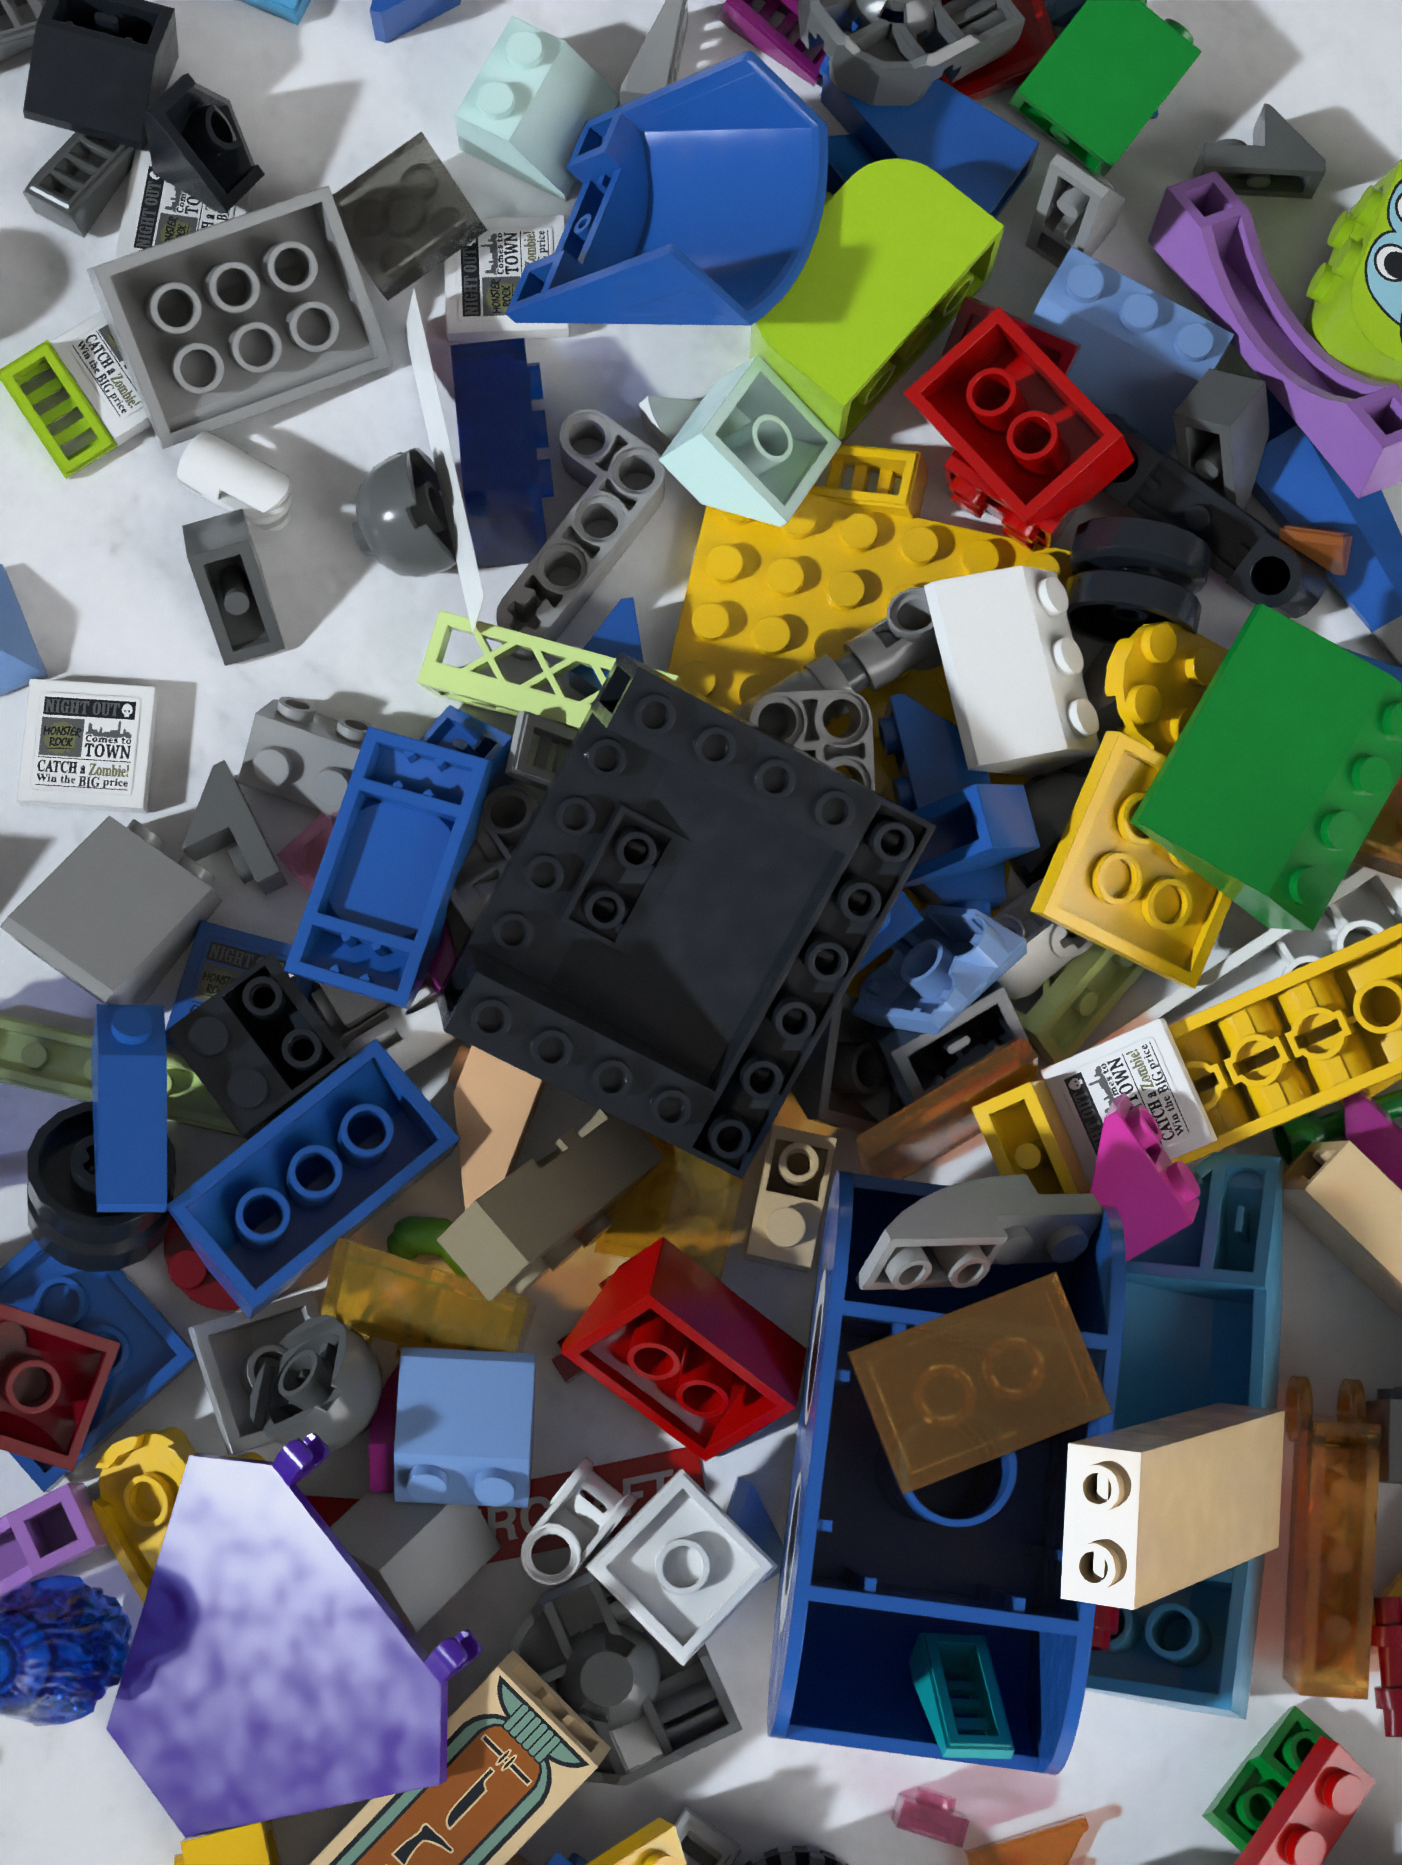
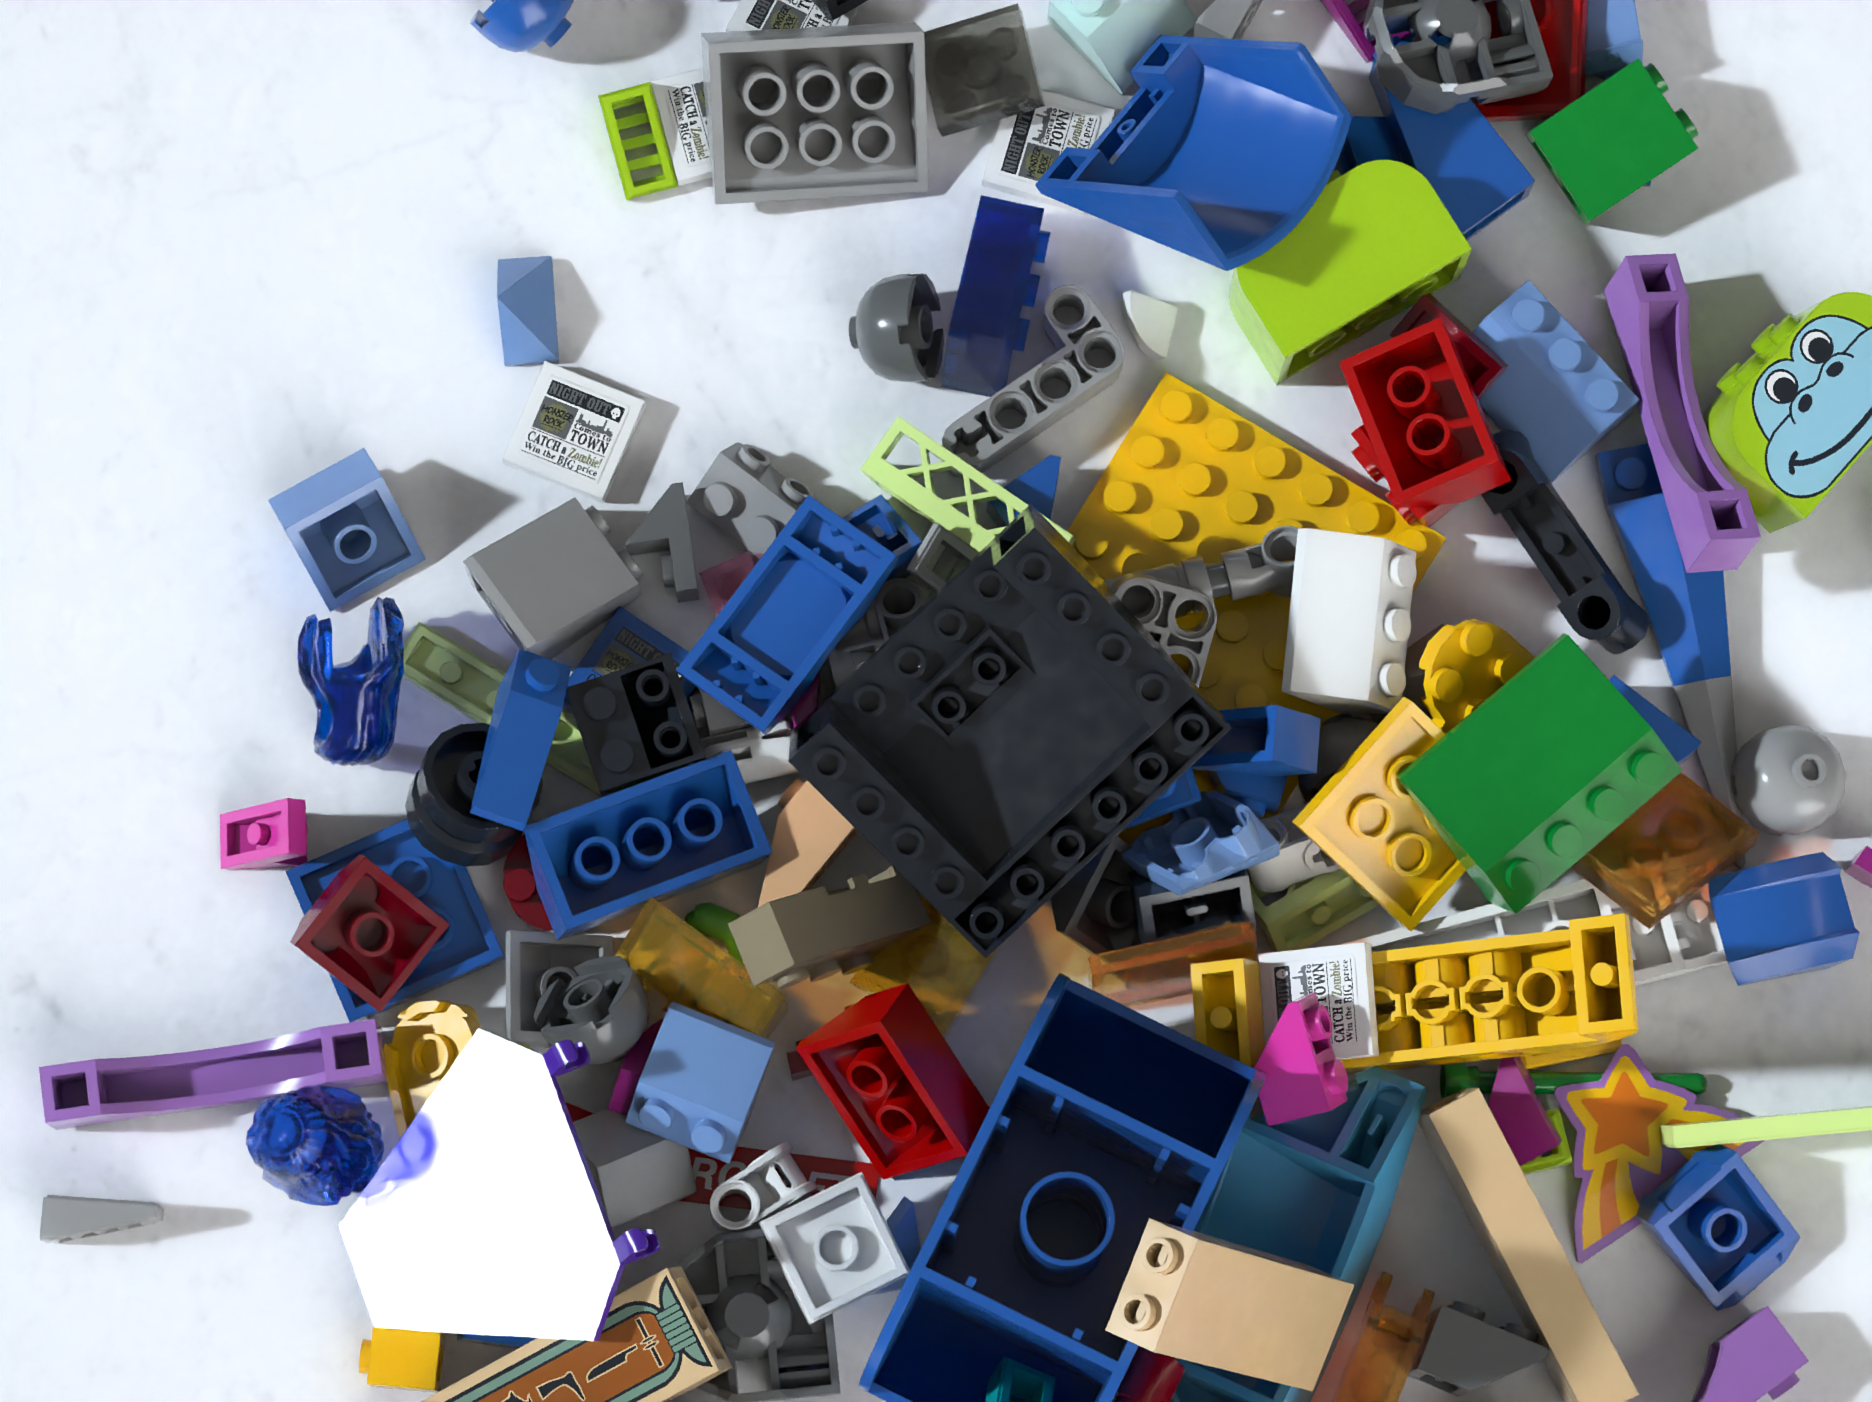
camera: 20 degrees right, 0 degrees up
(232, 586) = (735, 338): dark grey slope -> none
(236, 481) = (766, 250): white arm -> none
(444, 463) = (942, 292): white sticker -> none
(751, 446) = (1202, 362): light aqua slope -> none
(790, 1199) = (1020, 990): tan slope -> none
(889, 465) = (1317, 412): yellow slope -> none
(926, 754) = (1256, 666): blue slope -> none
(974, 1224) = (1149, 1046): light grey slope -> none
(979, 1382) = (1103, 1158): clear orange tile -> none
(1072, 211) = (1545, 248): light grey slope -> none
(1134, 576) = (1480, 577): black wheel -> none
(1224, 432) = (1600, 480): dark grey slope -> none
(1274, 166) = (1735, 263): dark grey slope -> none
(1323, 545) = (1649, 598): dark orange slope -> none

